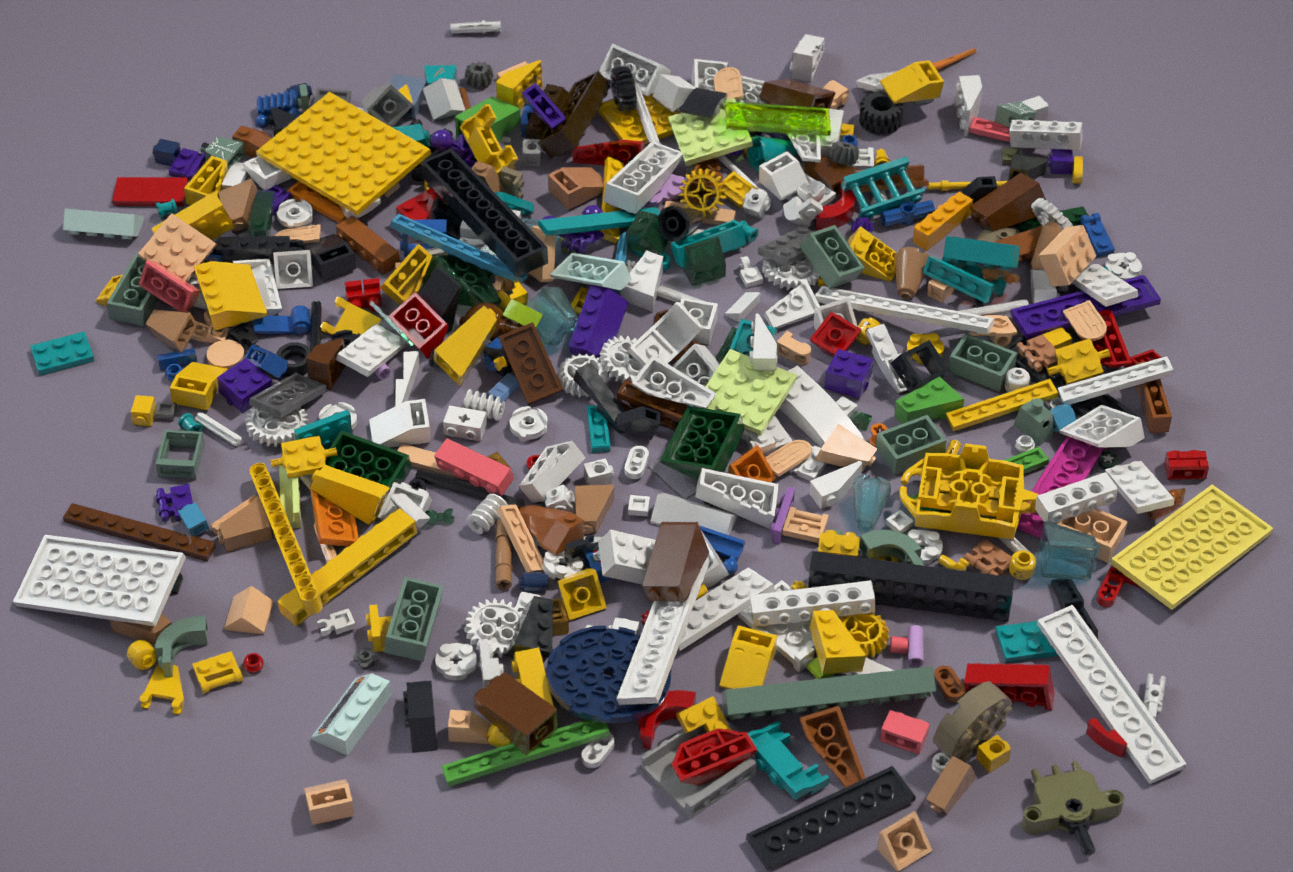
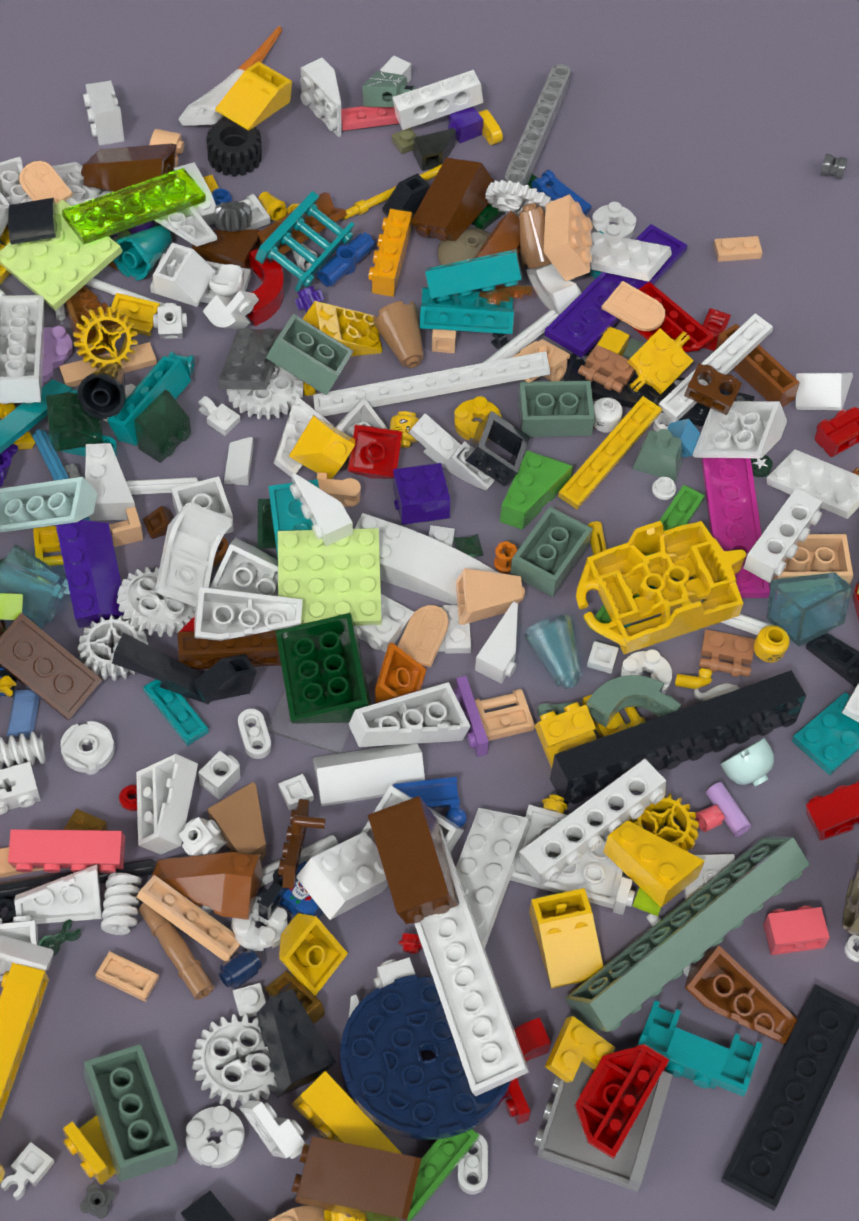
camera: 35 degrees left, 10 degrees up
(455, 494) = (63, 899): none -> white wing
(464, 554) = (127, 976): none -> light nougat plate
(622, 521) = (295, 839): none -> reddish brown plate
(641, 315) = (127, 531): none -> light nougat panel
(800, 316) = (322, 447): none -> yellow slope
(950, 624) = (750, 764): none -> light aqua cylinder
(950, 685) = (801, 834): dark orange plate -> none
(1094, 393) = (710, 394): none -> reddish brown brick
(1111, 182) = (539, 126): none -> light grey beam
(1190, 431) = (822, 390): none -> white slope
(1205, 320) = (737, 248): none -> light nougat plate

